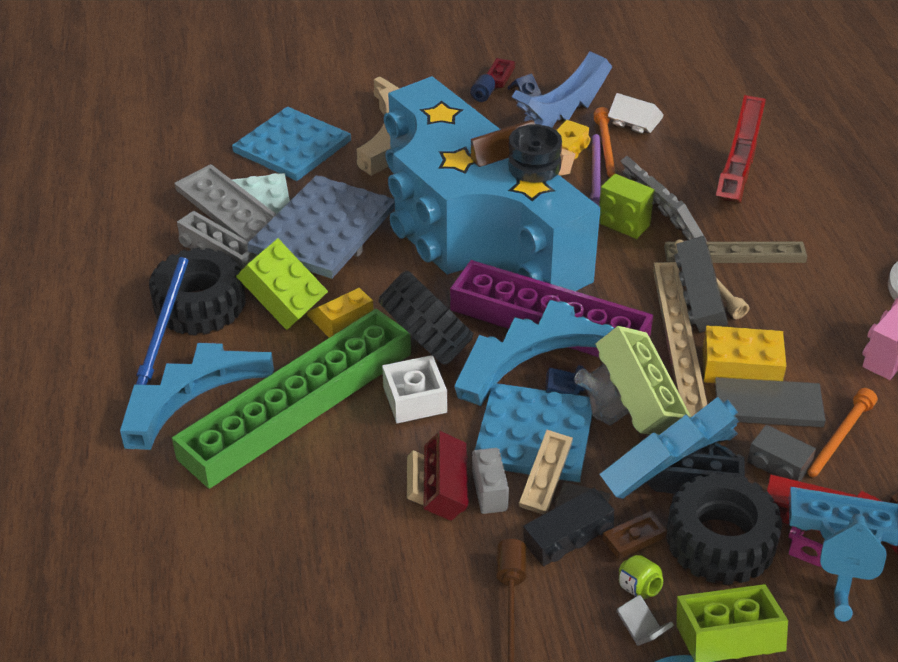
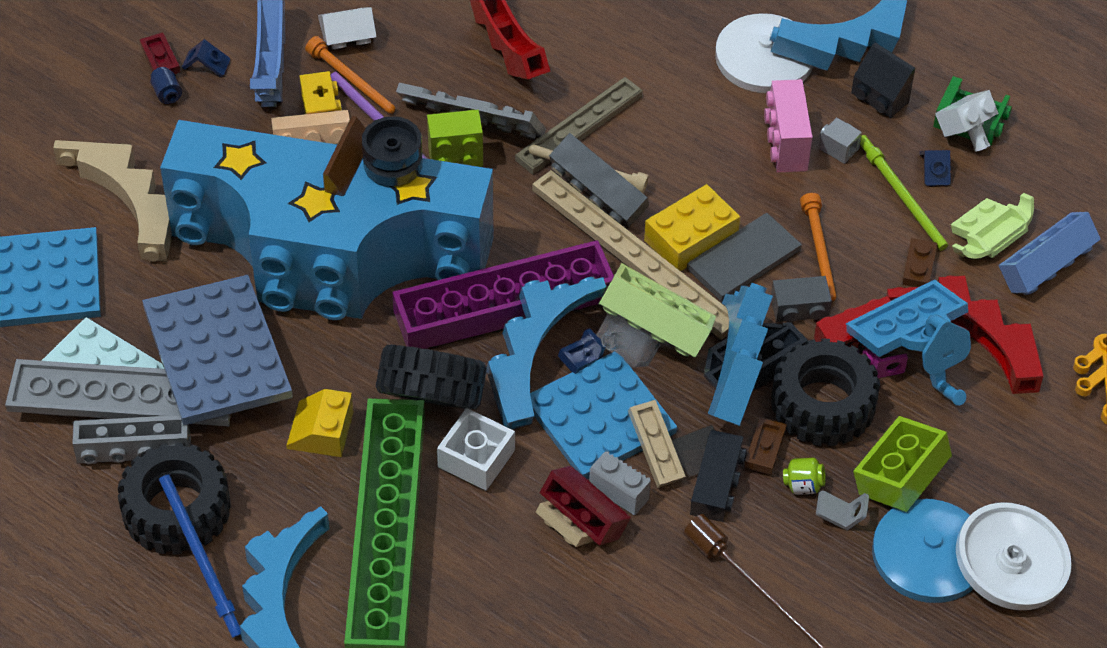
camera: 45 degrees left, 10 degrees up
(282, 283) = (255, 435): lime brick -> none

